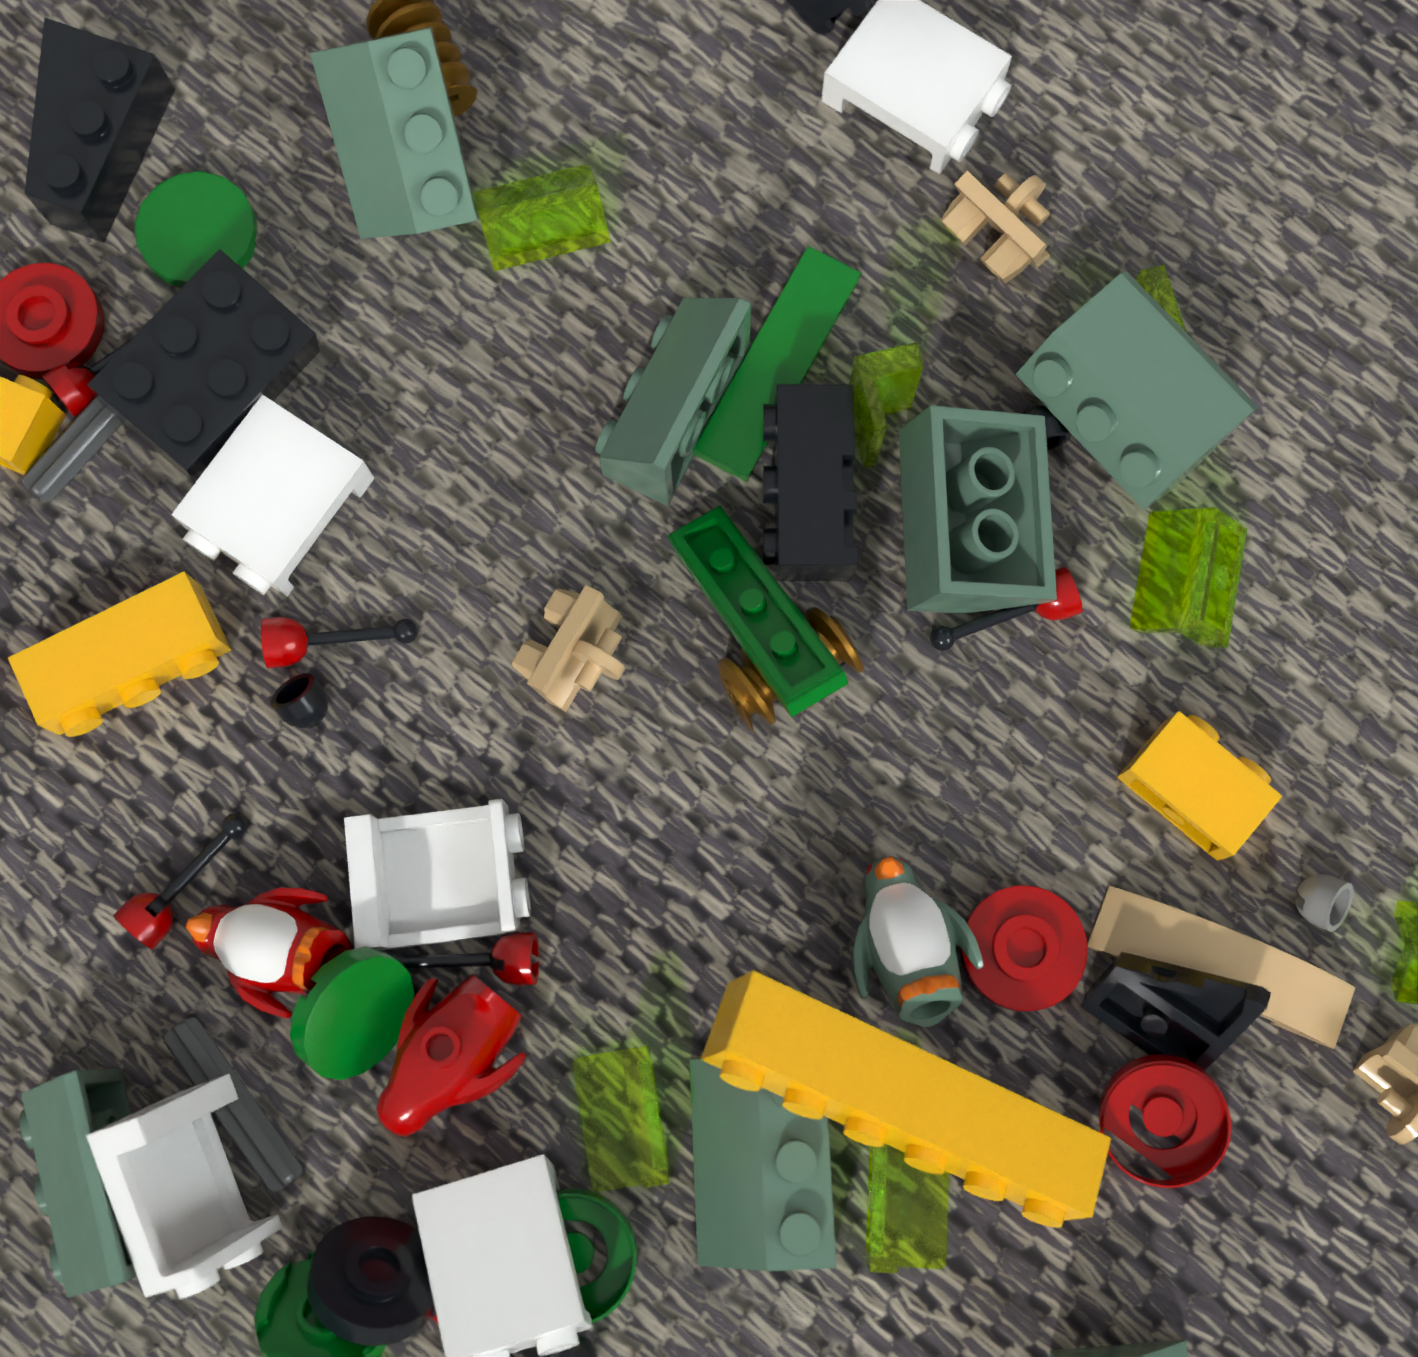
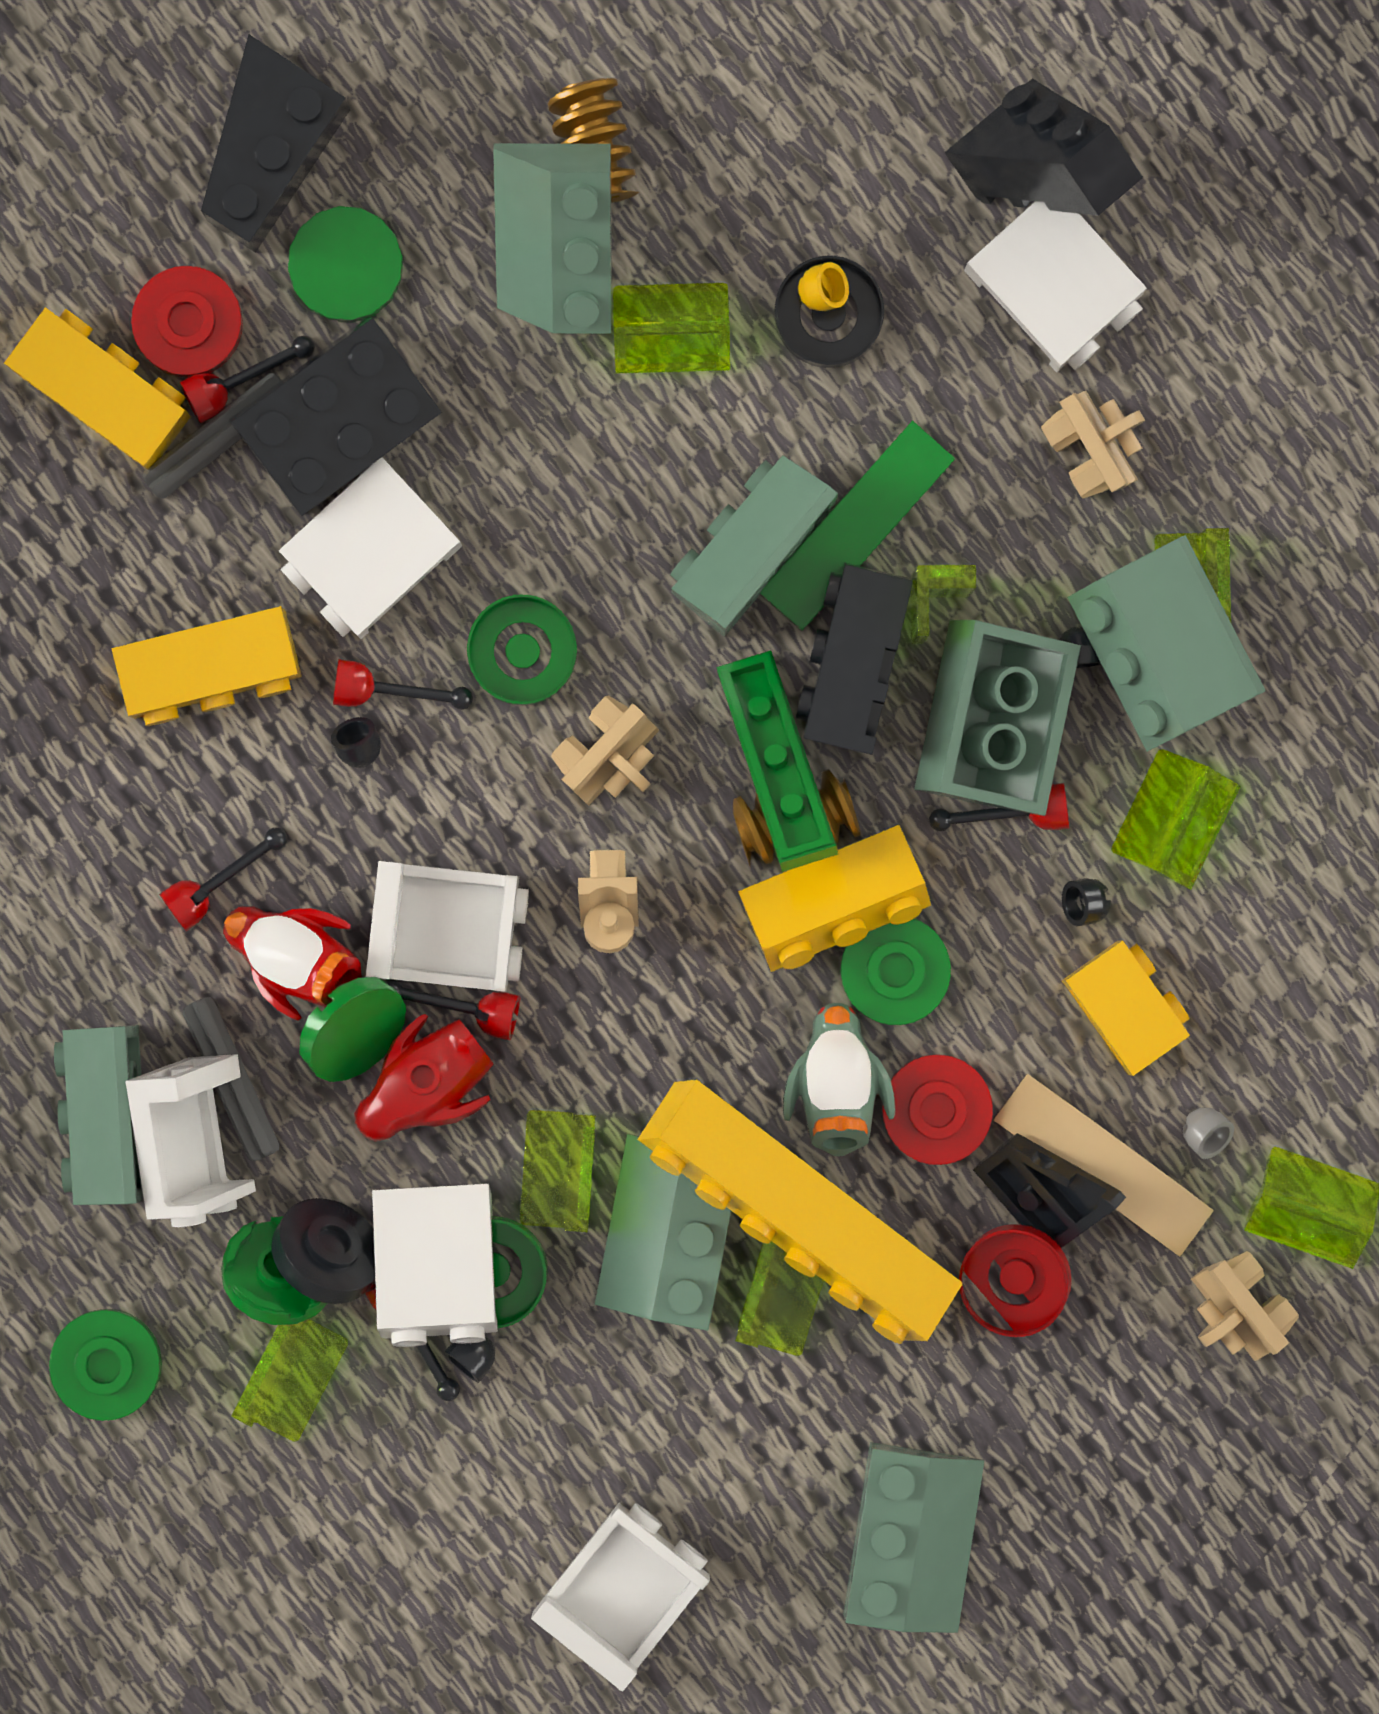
camera: 10 degrees right, 10 degrees up
(459, 567) = (522, 649): none -> green piece
(607, 800) = (608, 902): none -> tan hips
(684, 134) = (824, 287): none -> yellow hinge
(688, 127) = (857, 343): none -> black piece
(855, 742) = (836, 899): none -> yellow brick
(937, 807) = (896, 973): none -> green piece
(1114, 673) = (1095, 901): none -> black hinge

